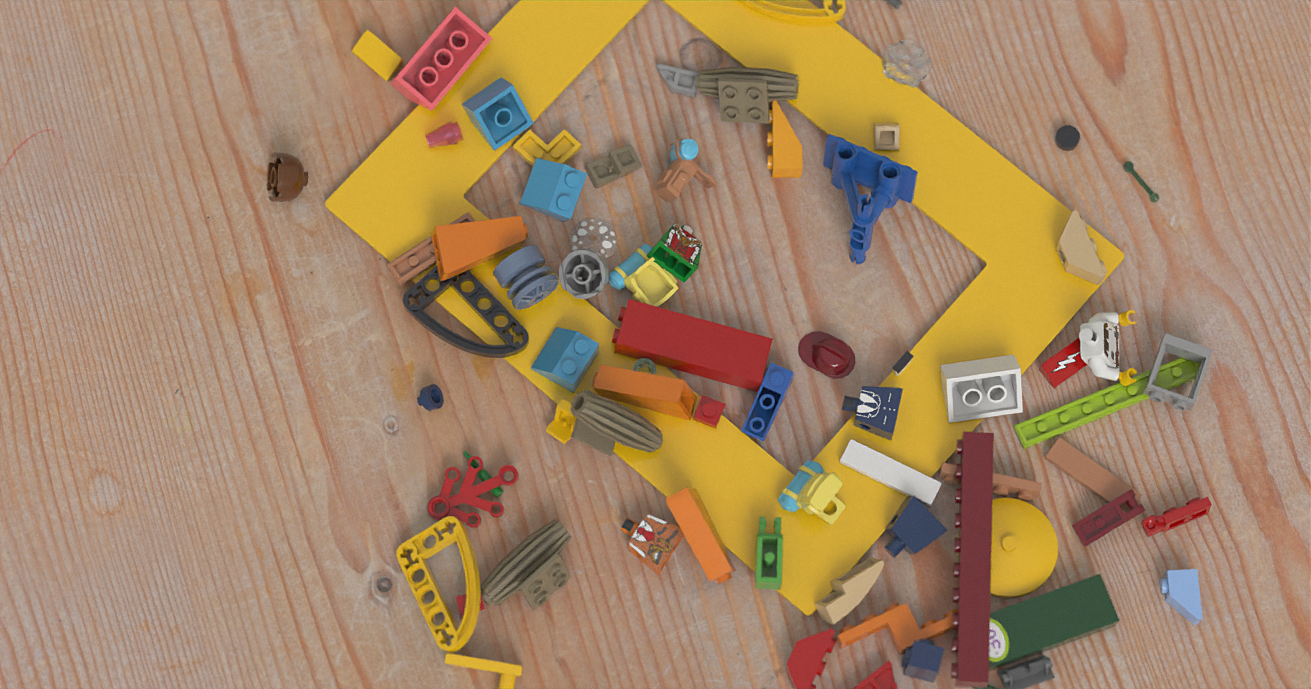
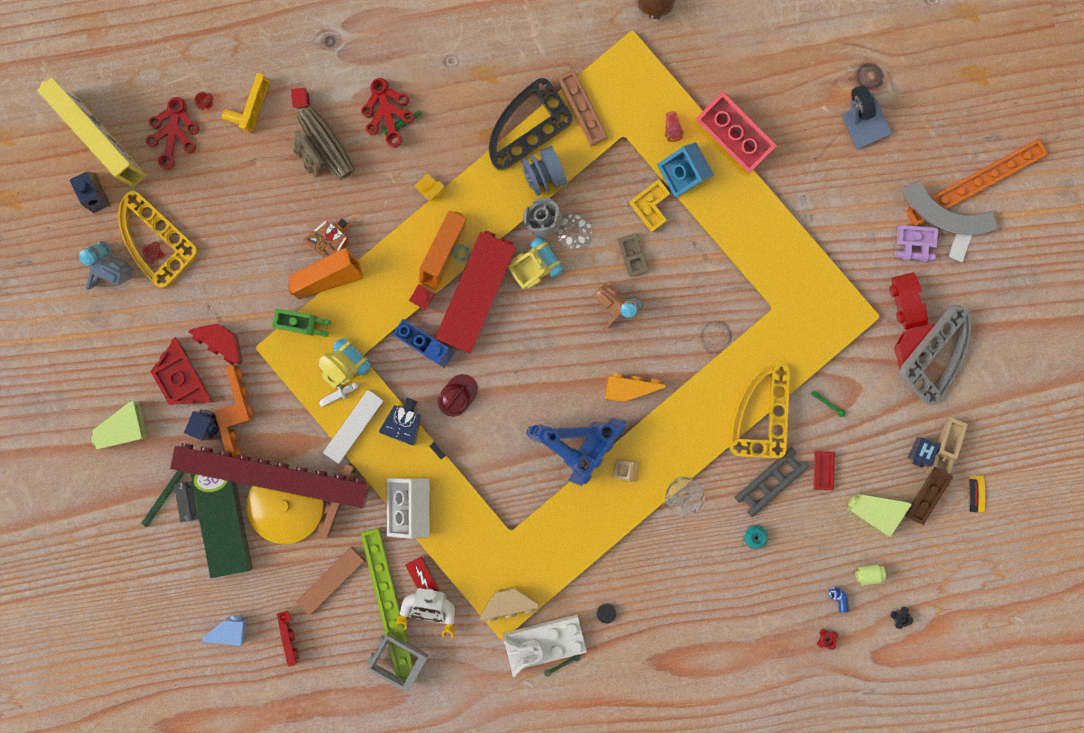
camera: 100 degrees right, 15 degrees up
(377, 56) = (749, 85): yellow slope -> none
(419, 555) = (346, 68): yellow beam -> none
(431, 397) = (465, 91): dark blue tile -> none
(474, 243) = (577, 134): orange slope -> none
(553, 189) = (616, 203): dark azure slope -> none
(566, 358) = (478, 194): dark azure slope -> none
(604, 422) = (419, 214): dark tan plate -> none
(677, 252) = (551, 291): torso -> none
(678, 80) = (697, 317): light grey tile -> none
(747, 91) = (677, 365): dark tan plate -> none
(849, 590) = (268, 380): tan slope -> none
(854, 501) = (341, 392): none -> white piece
(912, 528) = (307, 435): dark blue torso -> none
(1107, 518) = (293, 585): dark red plate -> none
(1119, 204) = (544, 643): none -> white plate

